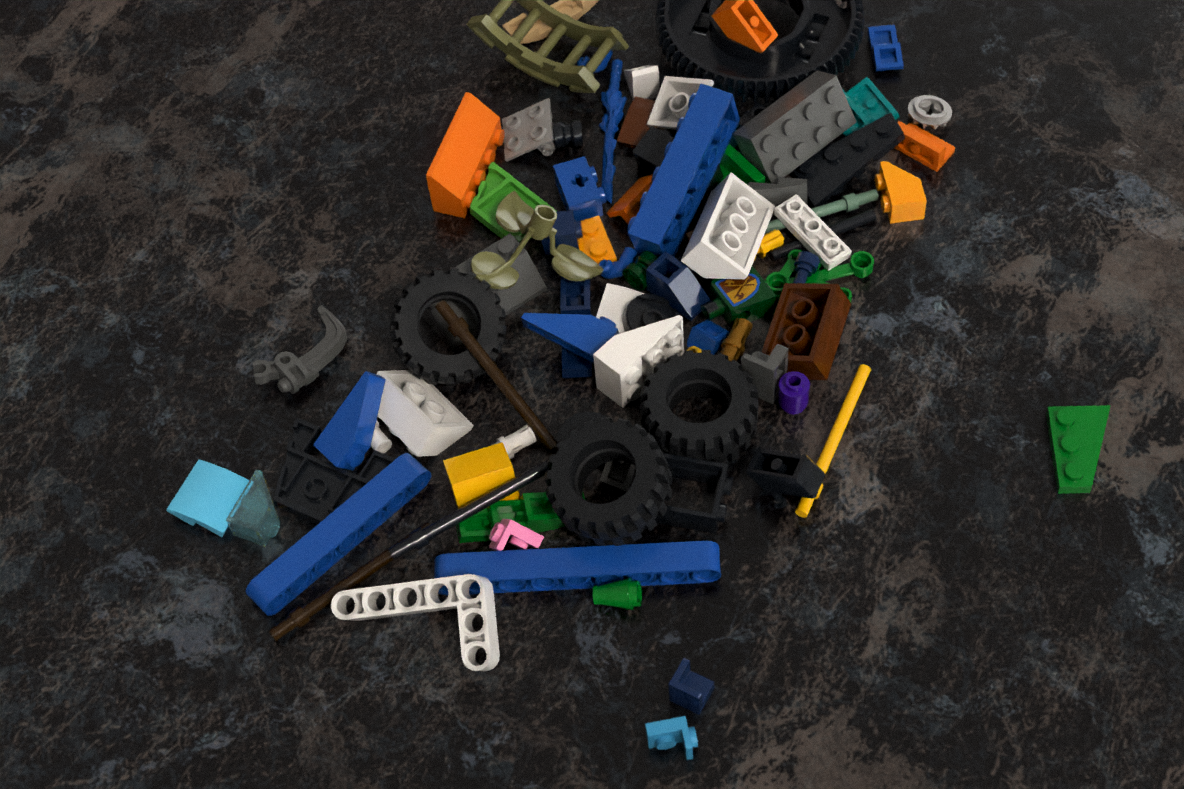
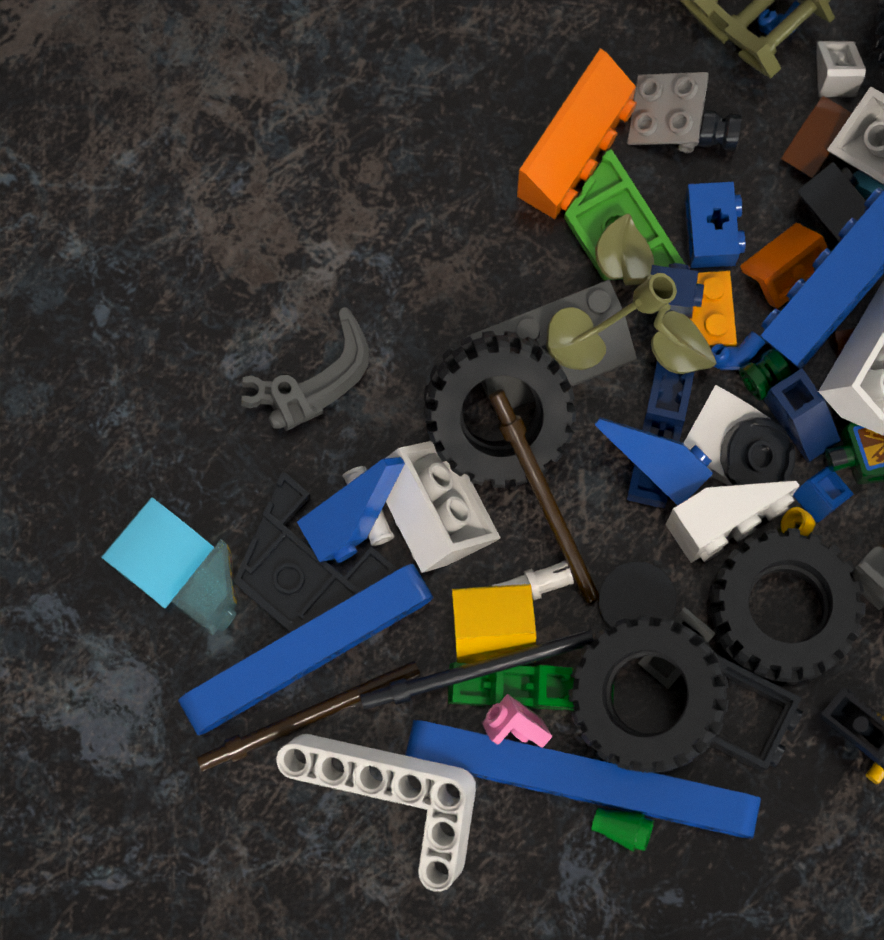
camera: 10 degrees right, 20 degrees up
(614, 103) = (792, 100): blue sword -> none
(734, 344) = (853, 516): pearl gold pin -> none

